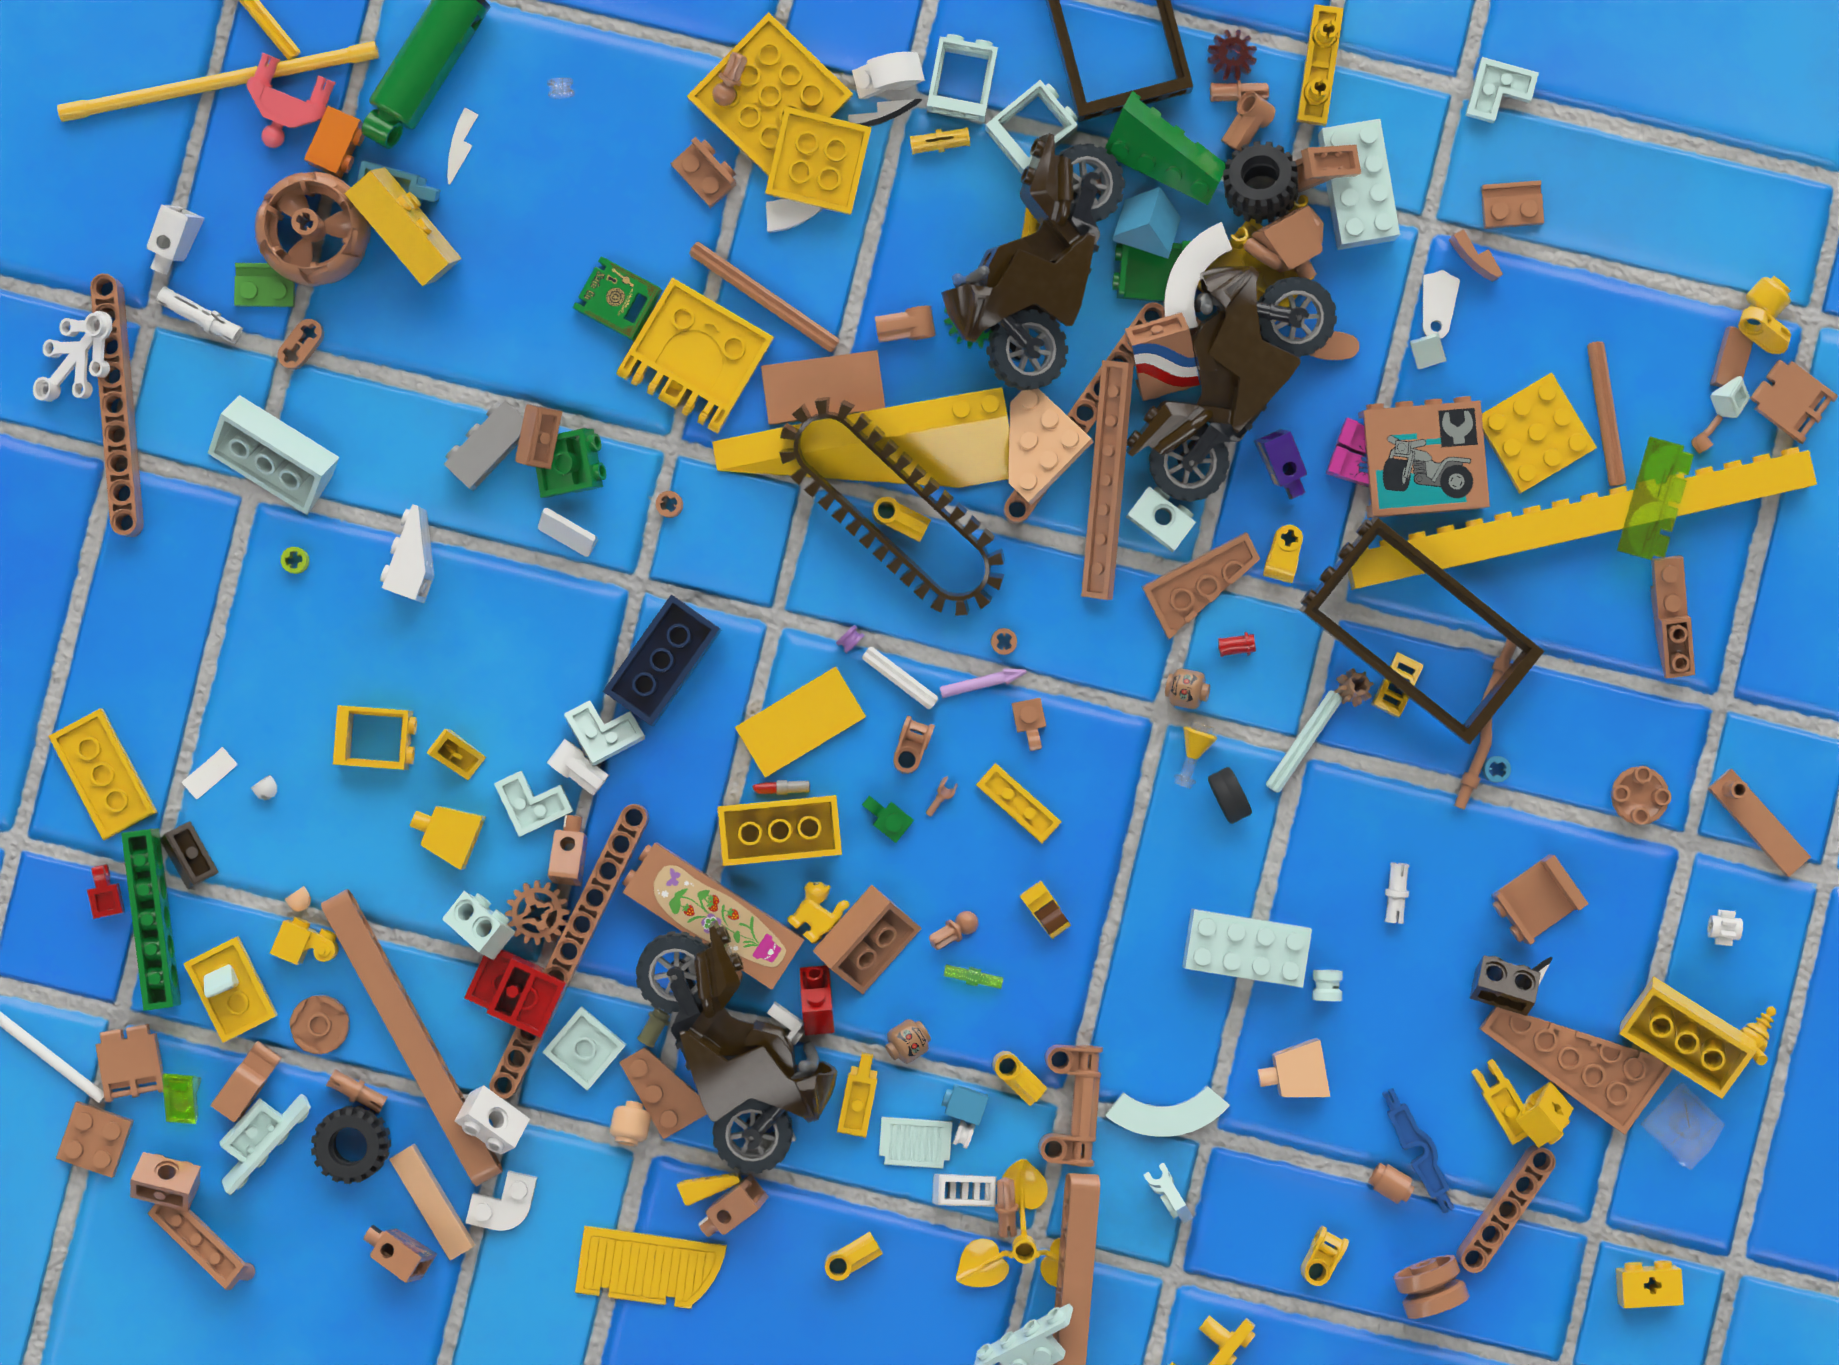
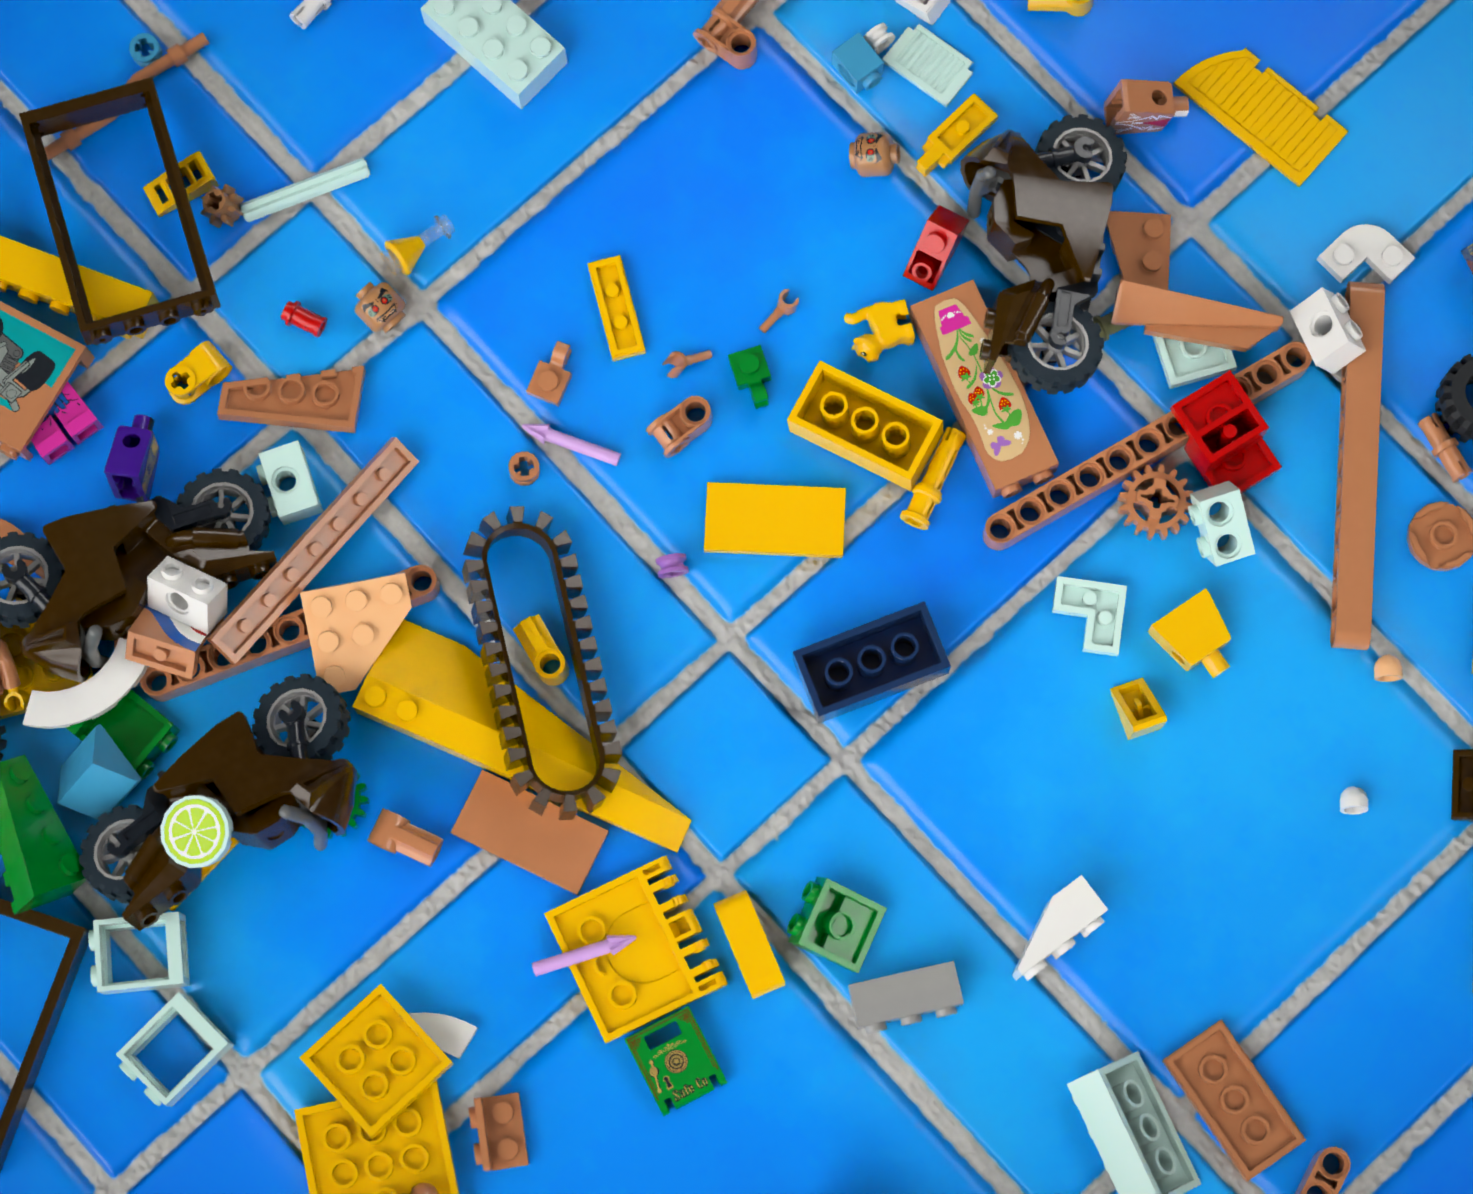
camera: 140 degrees left, 10 degrees down
(209, 773) = (1401, 854): white sticker -> none
(220, 524) = (1233, 1100): none -> nougat tile
(288, 554) = (1175, 1001): lime bush -> none
(297, 938) = (1410, 630): yellow brick -> none
(344, 730) = (1254, 772): yellow window -> none
(432, 1202) = (1435, 299): light nougat slope -> none
(538, 436) = (849, 966): nougat slope -> none
(567, 532) = (882, 856): white slope -> none
(568, 866) = (1096, 523): nougat torso -> none
(572, 763) = (1027, 625): white piece -> none
(595, 1063) = (1191, 317): none -> nougat wedge
(602, 740) = (985, 627): light aqua plate -> none
(619, 410) = (749, 944): none -> yellow beam
(630, 1124) = (1194, 247): light nougat head -> none
(667, 513) = (770, 811): nougat bush -> none
(700, 1188) = (1156, 143): yellow slope -> none
(704, 813) = (927, 492): none -> yellow pin
(711, 345) = (612, 944): none -> lavender piece
(764, 297) = (524, 958): nougat axle -> none
(782, 787) = (835, 469): light grey piece -> none
(784, 1018) = (978, 250): white bracket -> none
(866, 939) = (850, 273): nougat slope -> none
(885, 111) = (275, 1072): white sticker -> none
(888, 72) = (245, 1105): white brick -> none
(899, 880) = (781, 309): none -> nougat hand
(900, 678) = (649, 498): white axle -> none
(940, 140) = (263, 1013): yellow pin -> none
(965, 923) = (744, 230): nougat axle -> none
(973, 976) = (771, 176): clear neon green bar -> none
(1020, 1079) = (791, 57): yellow piece -> none
(1039, 221) = (196, 831): none -> tile
(1045, 909) = (659, 193): leg -> none
(1169, 384) = (187, 594): none -> white brick
(1229, 795) = (410, 180): black tyre -> none

